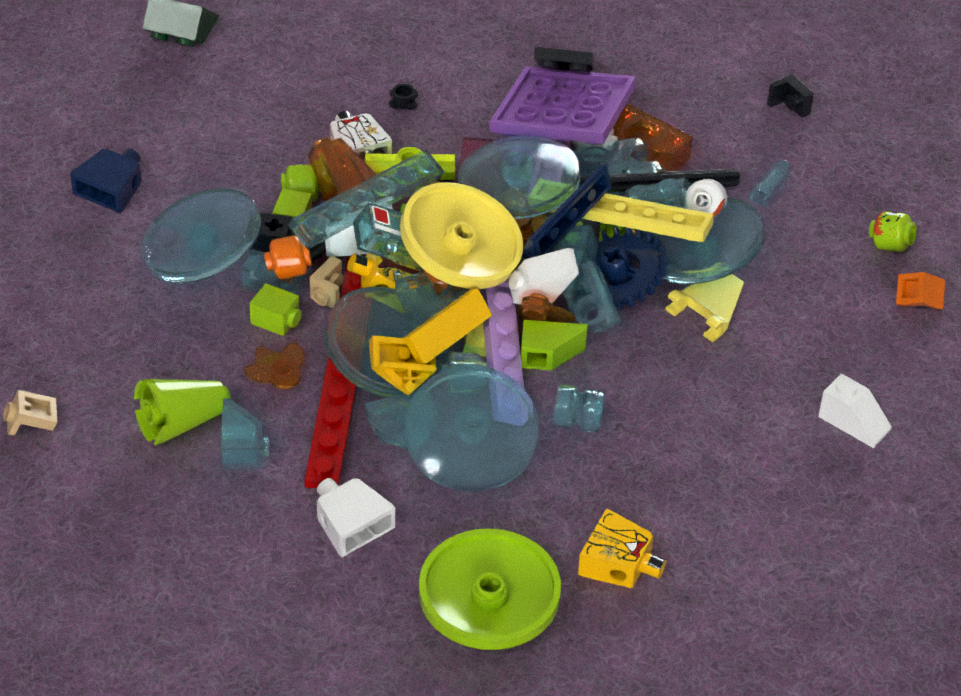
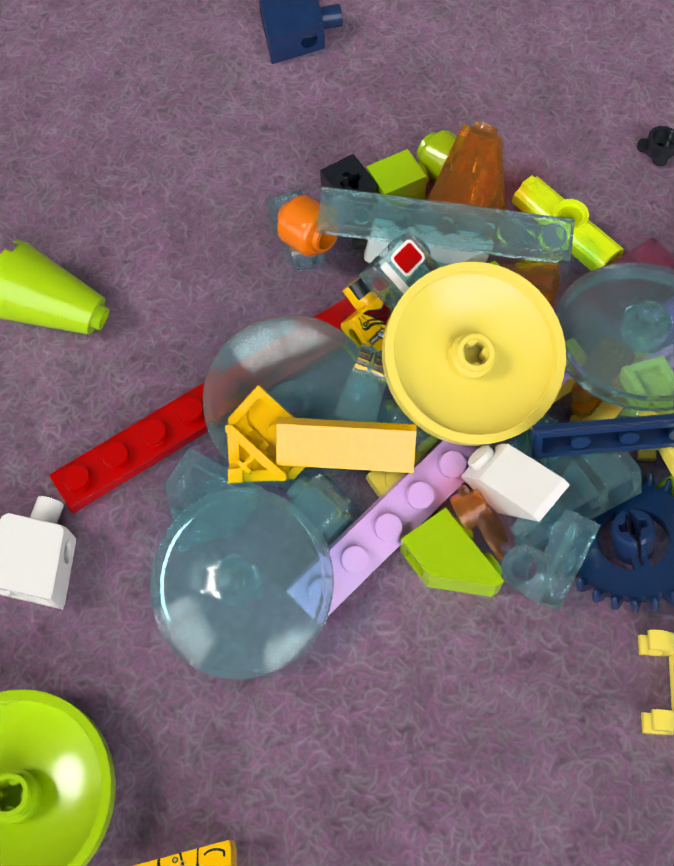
camera: 55 degrees right, 20 degrees up
(201, 235) = (283, 139): clear light blue dish -> none
(242, 438) = (55, 374): clear light blue slope -> none
(275, 309) = (252, 269): lime brick -> none
(276, 368) = (188, 325): clear orange plate -> none
(326, 282) = (330, 280): tan bracket -> none
(361, 134) = (549, 151): white torso -> none
(579, 408) = (369, 655): clear light blue wheel -> none

